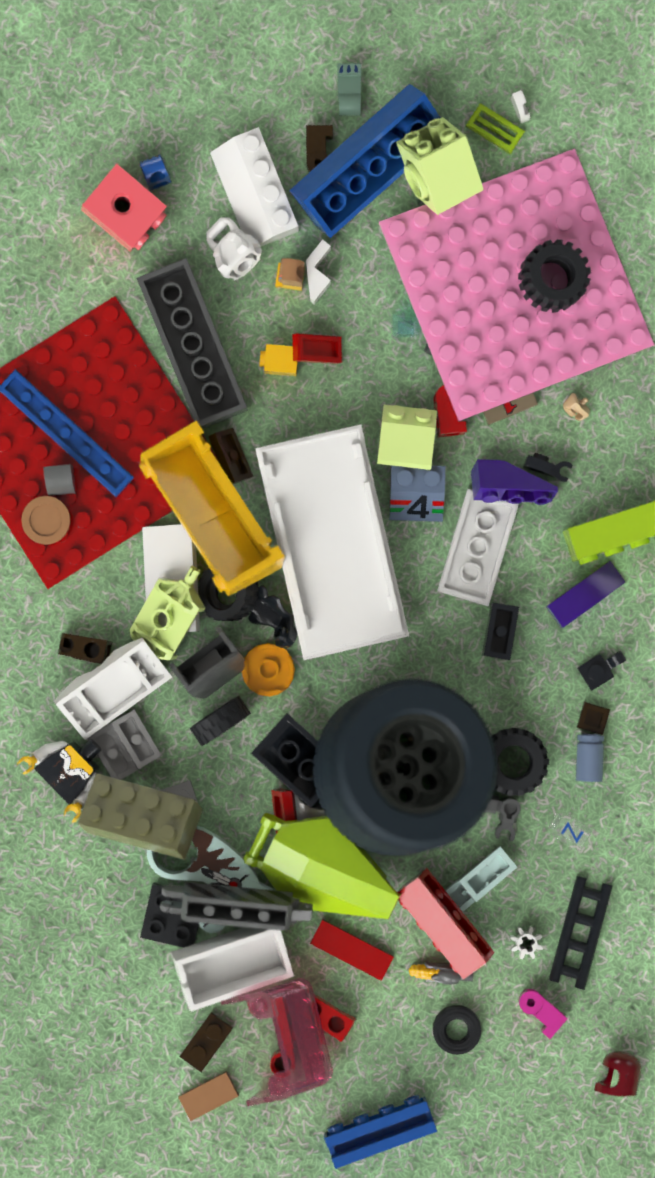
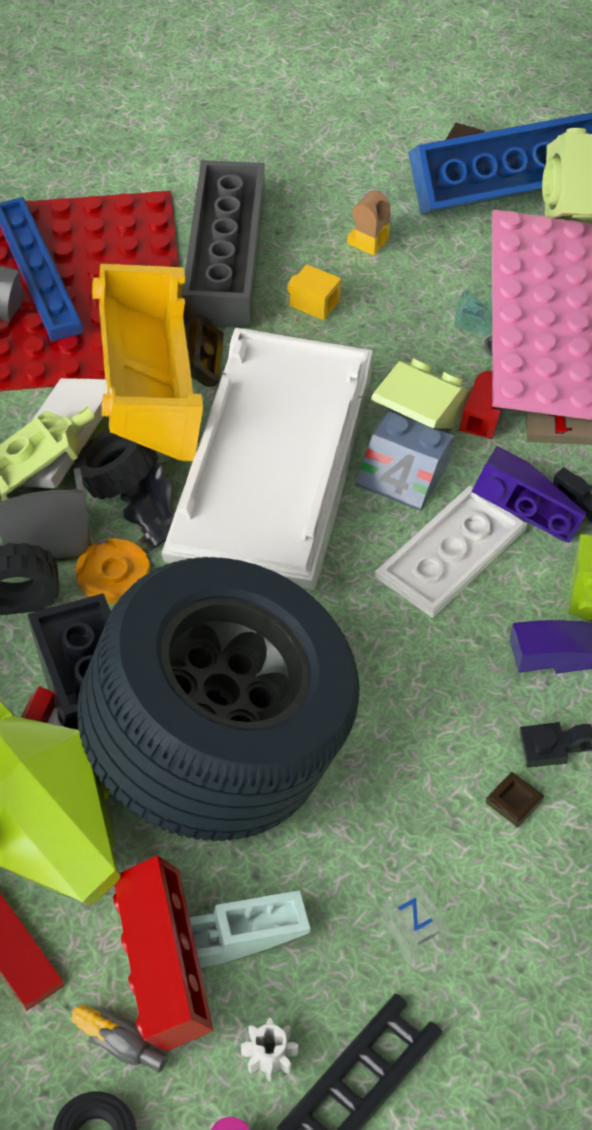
camera: 25 degrees right, 35 degrees down
(126, 227) = (225, 111): coral brick -> none
(155, 172) = (276, 104): blue leg -> none
(233, 249) = (320, 192): white piece -> none
(254, 188) = (372, 154): white slope -> none
(317, 282) = (396, 242): white slope -> none
(317, 348) = (361, 293): red tile -> none
(349, 89) = (521, 111): sand green leg -> none
(500, 631) = (434, 635): black brick -> none
(509, 811) = (337, 854): dark grey bar -> none
(538, 761) = (372, 822): black tyre -> none
(589, 758) = (487, 840): sand blue piece -> none

